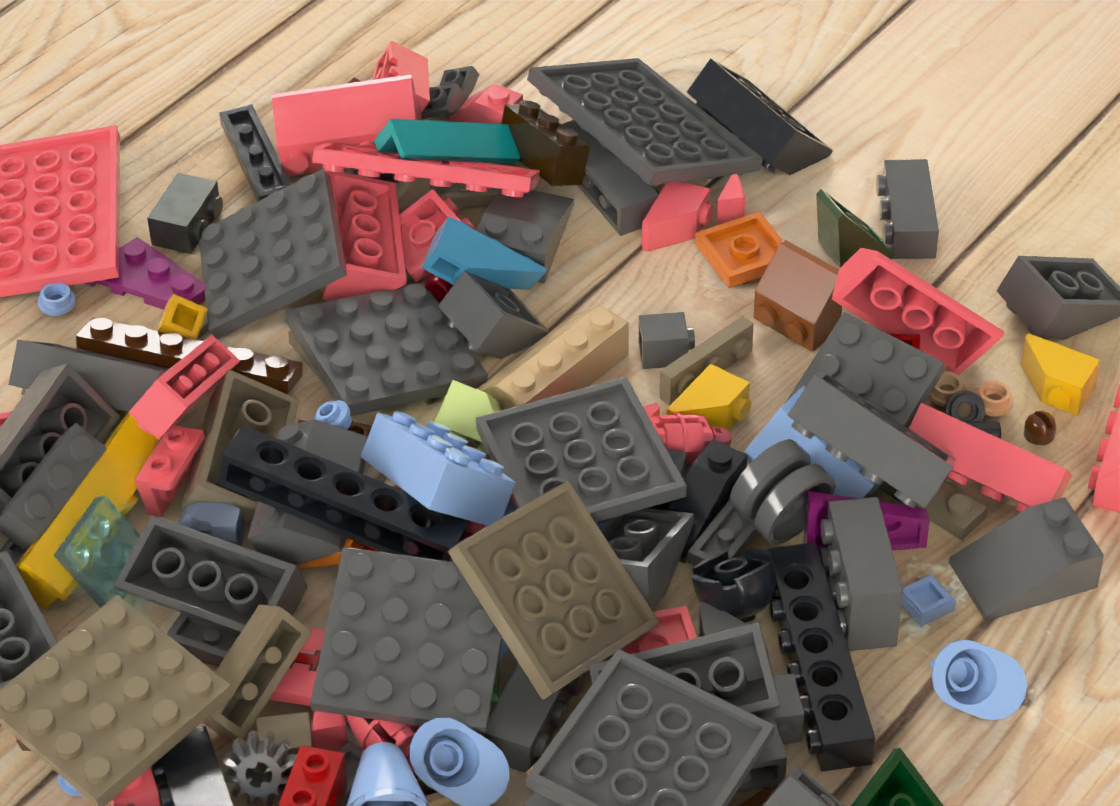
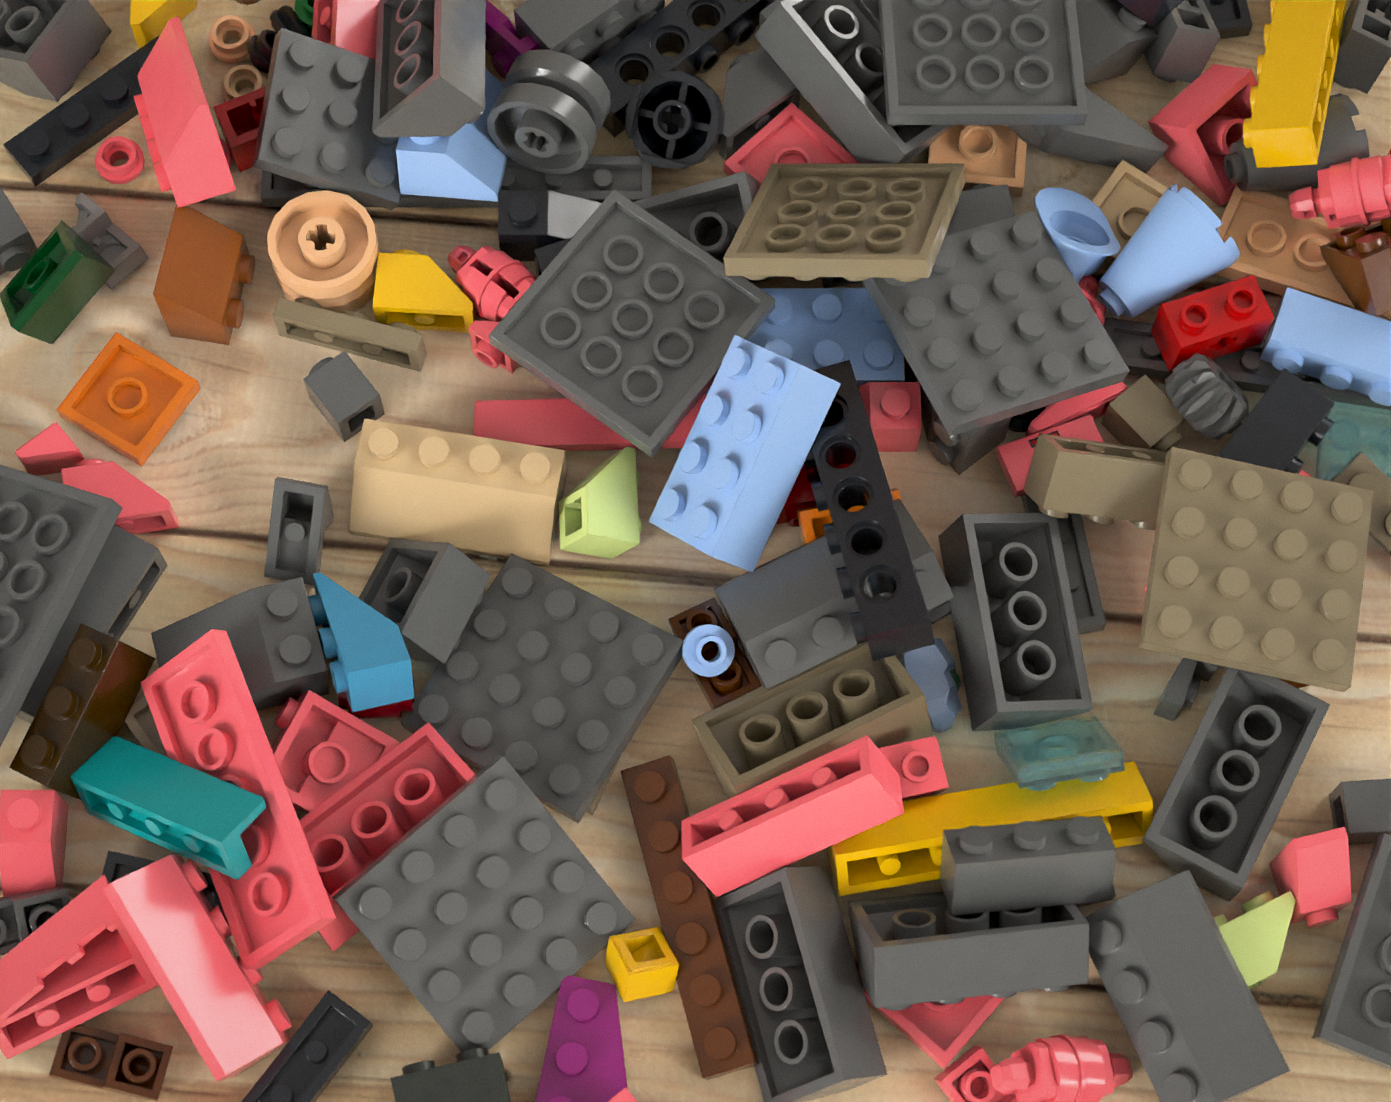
camera: 125 degrees left, 25 degrees up
(588, 280) = (297, 529): none -> dark grey slope
(773, 359) = (325, 250): none -> light nougat wheel
(974, 290) = (79, 120): none -> black plate

